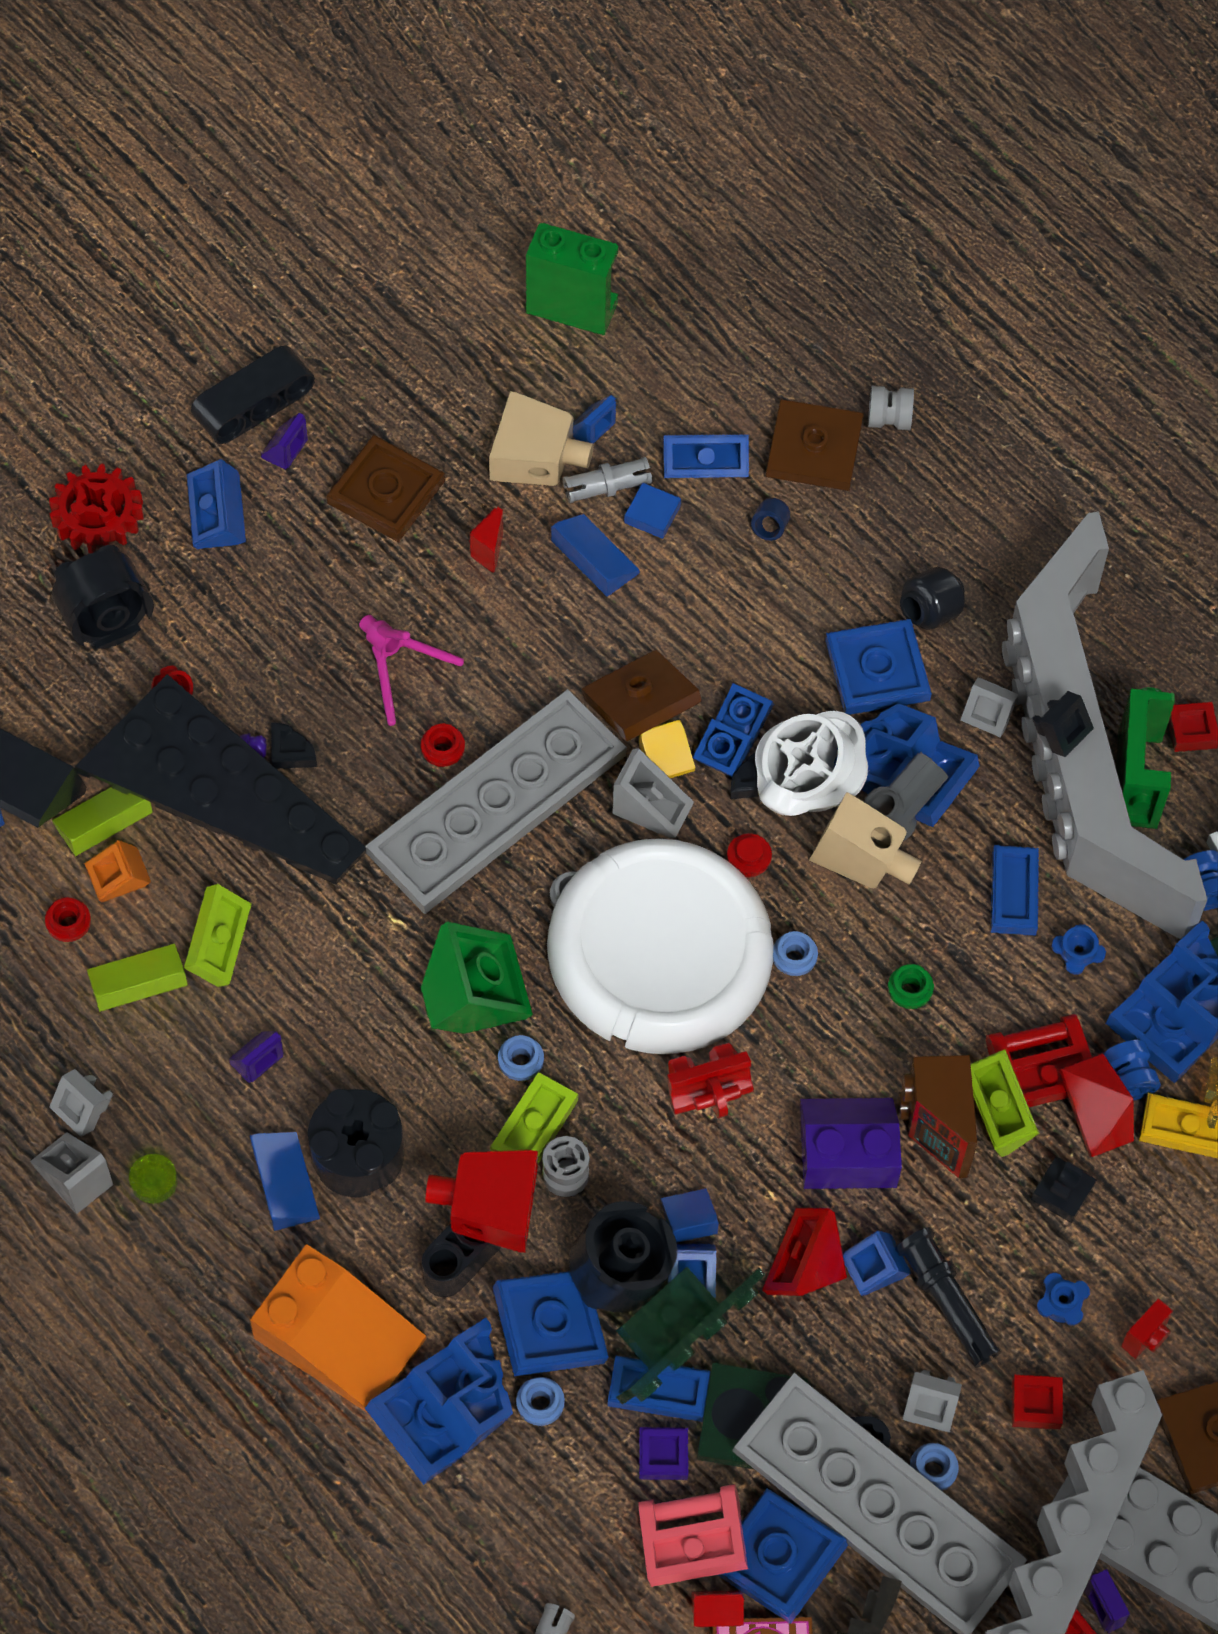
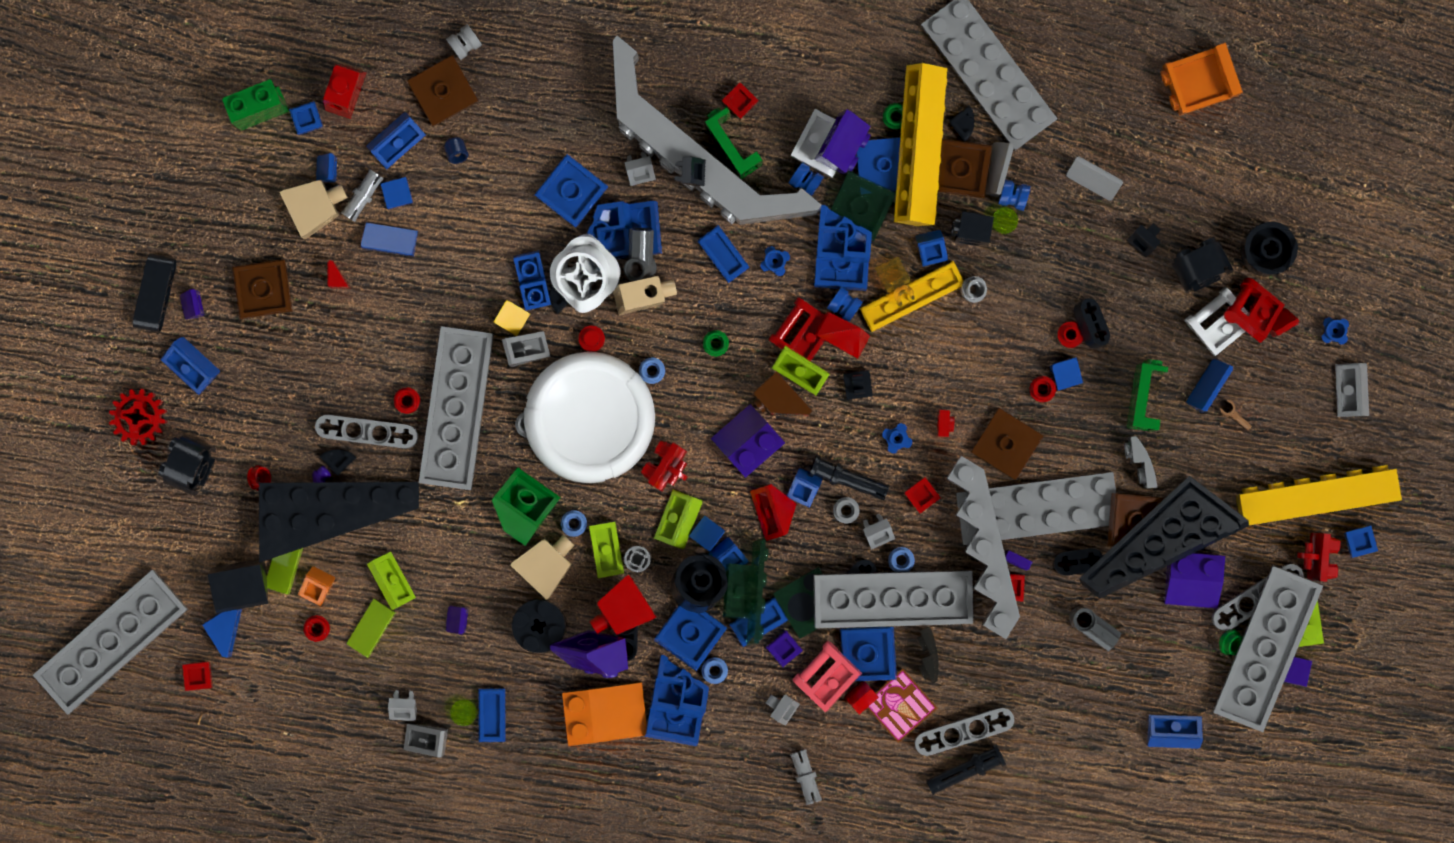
camera: 35 degrees left, 25 degrees up
(186, 1212) = (492, 715): none -> blue tile
(284, 1179) = (520, 665): blue slope -> none
(362, 738) = (366, 431): none -> light grey beam
(387, 642) = (335, 369): dark pink plant -> none
(394, 1228) = (593, 653): none -> dark purple slope
(435, 1075) = (545, 565): none -> tan torso
(591, 1529) = (783, 708): none -> light grey tile
(618, 353) = (306, 118): none -> blue tile
(641, 695) = (477, 300): reddish brown plate -> none
(666, 1166) = (678, 519): none -> lime slope
(692, 347) = (343, 90): none -> red torso
(910, 1324) = (854, 510): none -> light grey plate
(932, 598) = (568, 133): black head -> none

